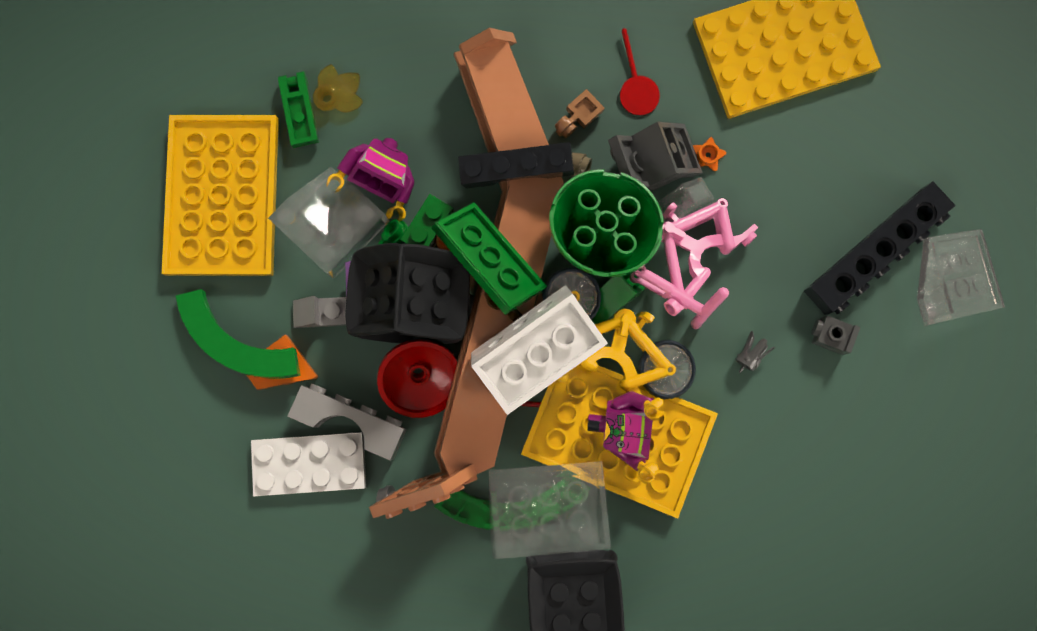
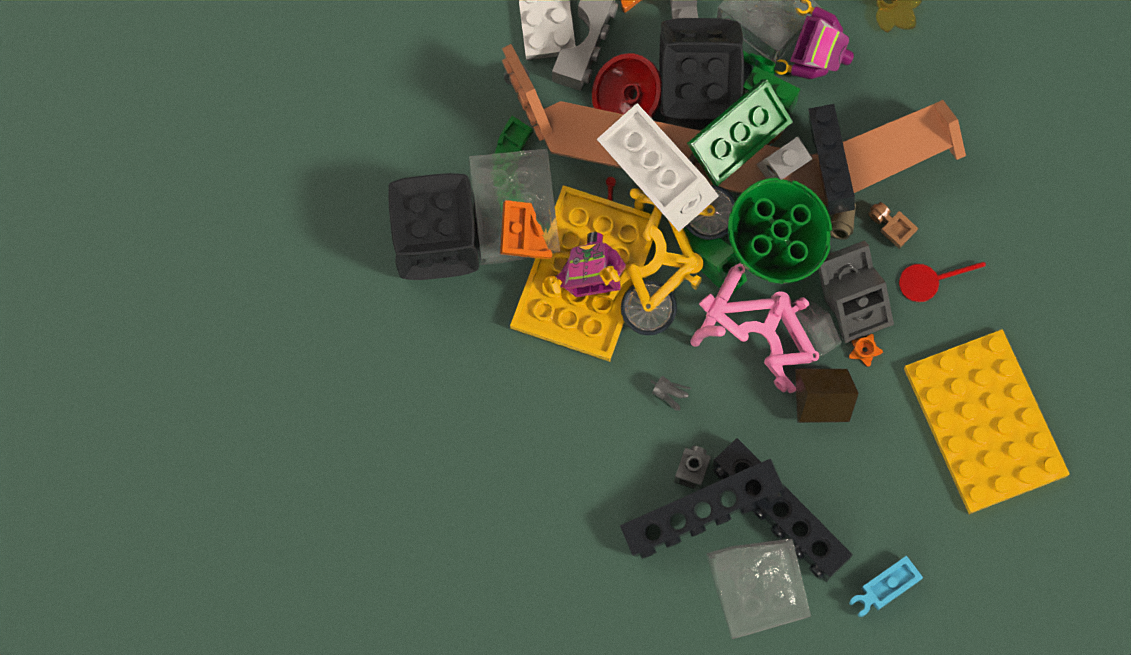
camera: 85 degrees right, 10 degrees down
(522, 211) = (785, 160): none -> light grey torso
(586, 503) = (521, 232): none -> orange wing
(761, 195) = (825, 395): none -> dark brown slope
(875, 317) = (636, 529): none -> black brick
(955, 153) = (888, 585): none -> medium azure plate

